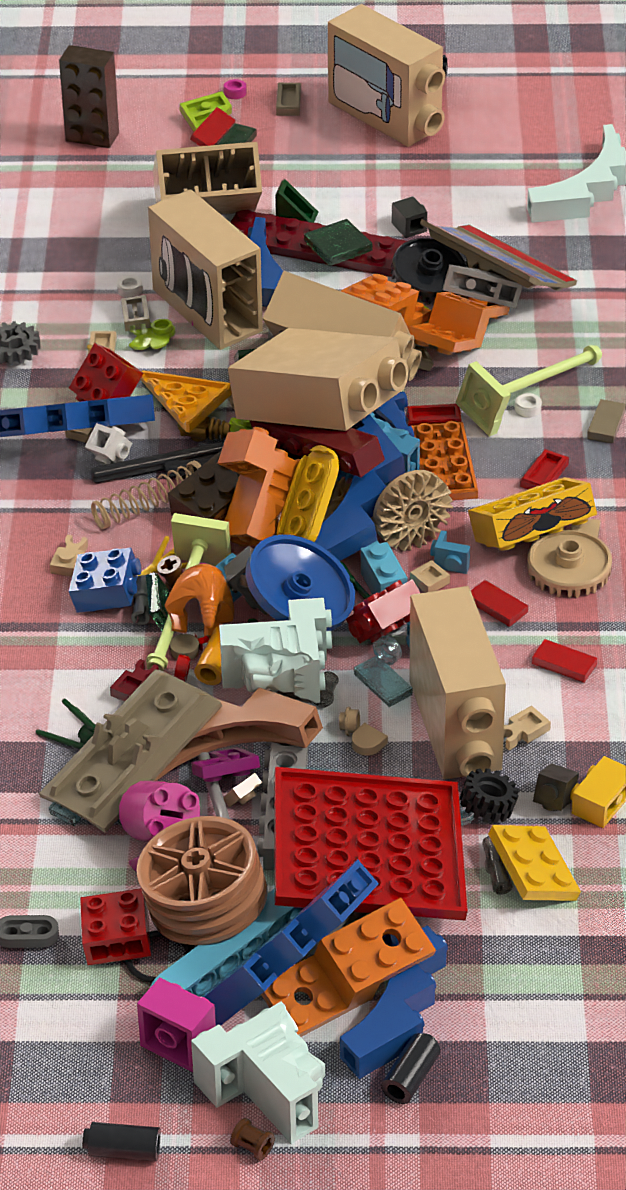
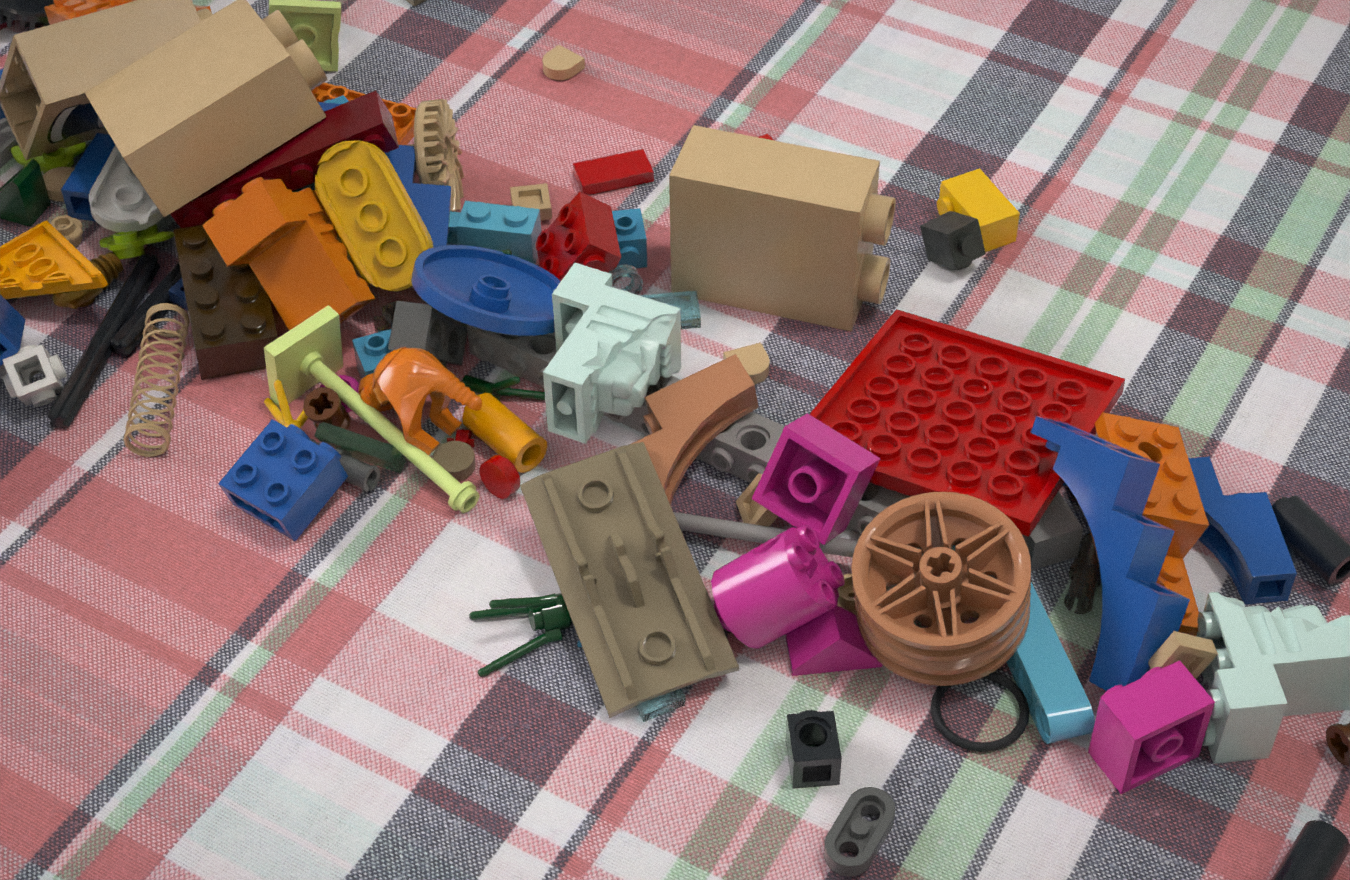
camera: 60 degrees left, 5 degrees up
(65, 558) = (186, 509): tan plate -> none
(67, 886) = (809, 764): none -> black brick
(115, 926) = (926, 724): red brick -> none
(130, 681) = (484, 536): dark red plate -> none
(224, 762) = (716, 494): magenta plate -> none
(229, 1011) = (1191, 650): none -> tan plate
(250, 787) = (815, 477): none -> dark pink brick
(349, 720) = (706, 357): tan plate -> none
(450, 555) = (512, 171): dark azure bracket -> none
(489, 795) = (927, 294): black tyre -> none
(495, 867) = (1054, 345): clear smoke pin -> none
(532, 513) = (520, 77): yellow brick -> none
(534, 863) = (1053, 305): yellow plate -> none
(545, 469) = (439, 54): red tile -> none
(569, 562) = (602, 92): tan wheel -> none

